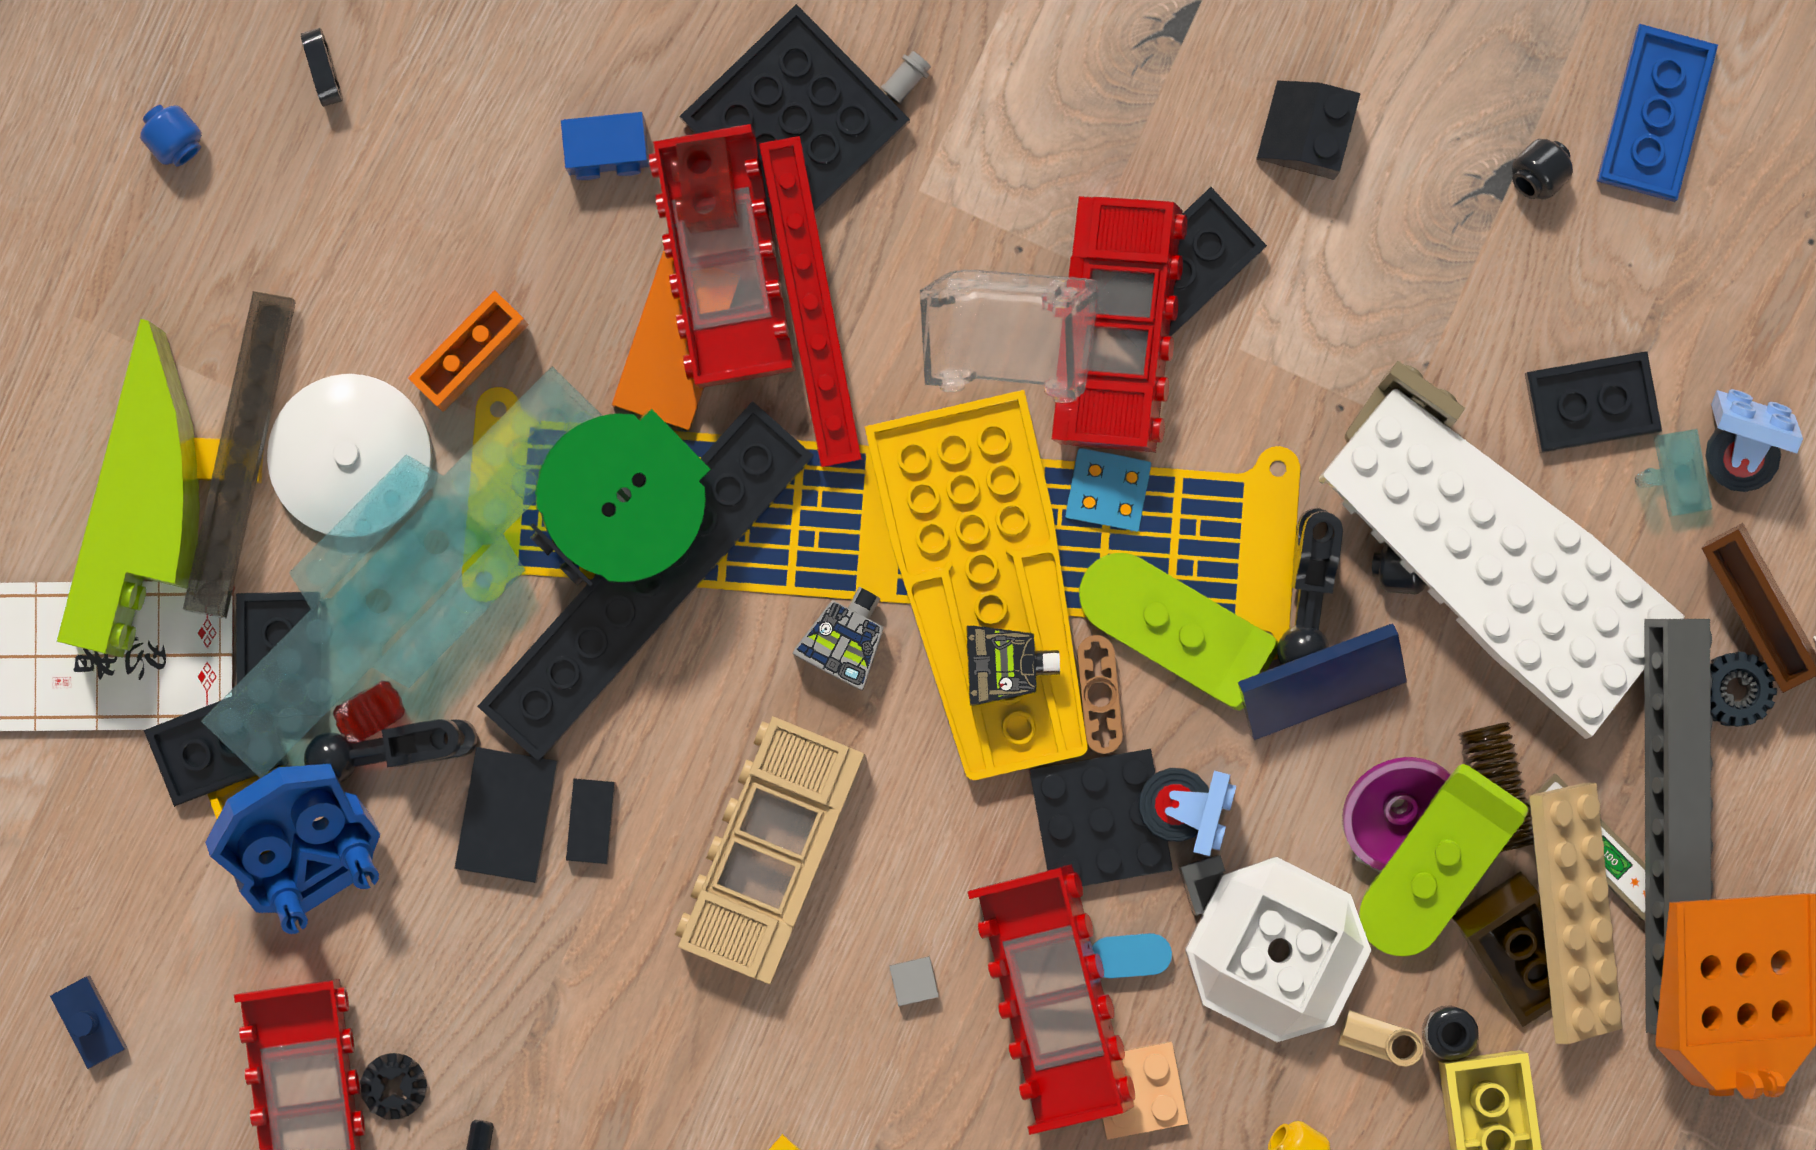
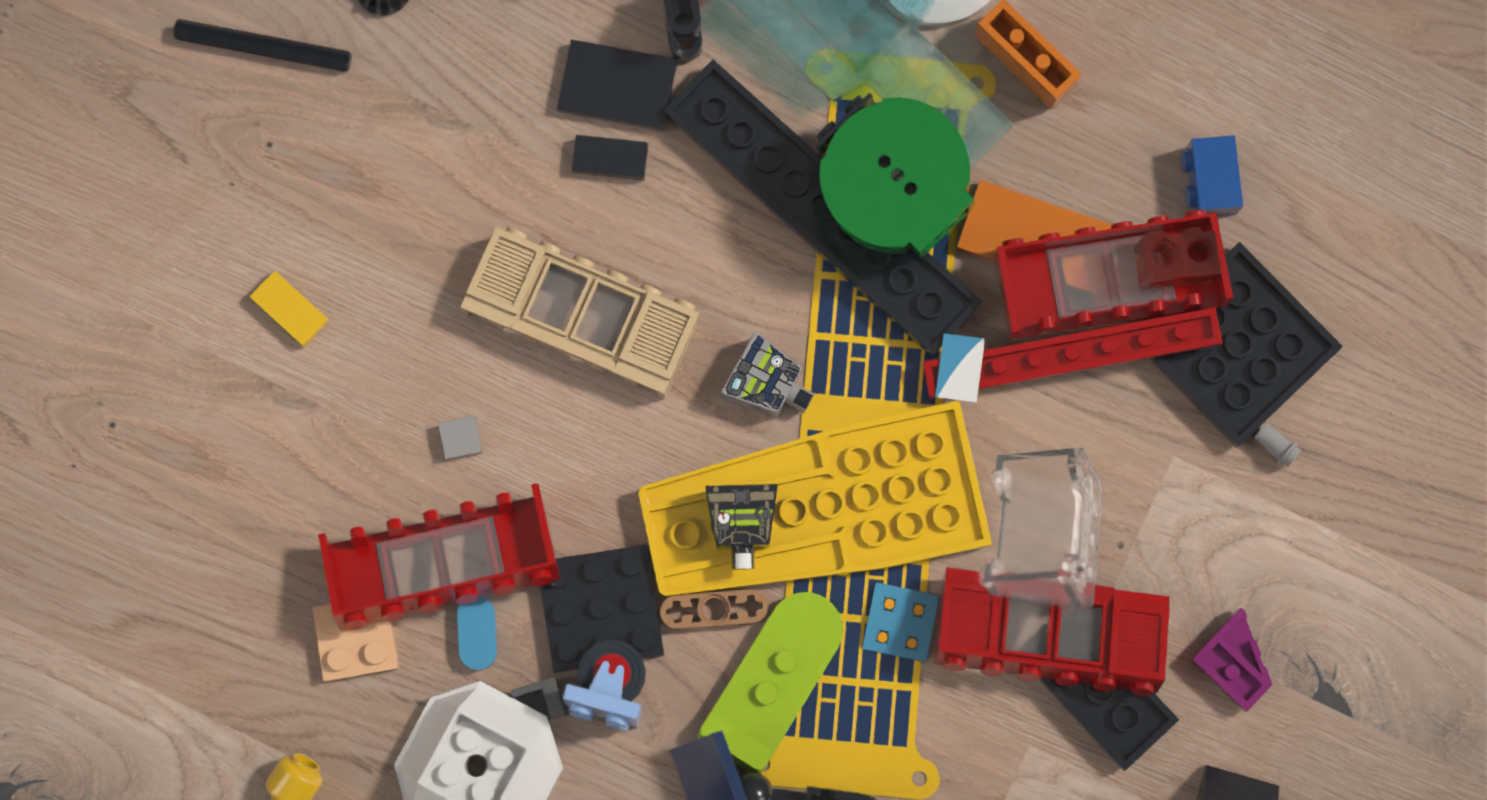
camera: 85 degrees right, 5 degrees down
(828, 425) = (960, 367): none -> sticker
(1145, 126) = (1235, 662): none -> magenta wing

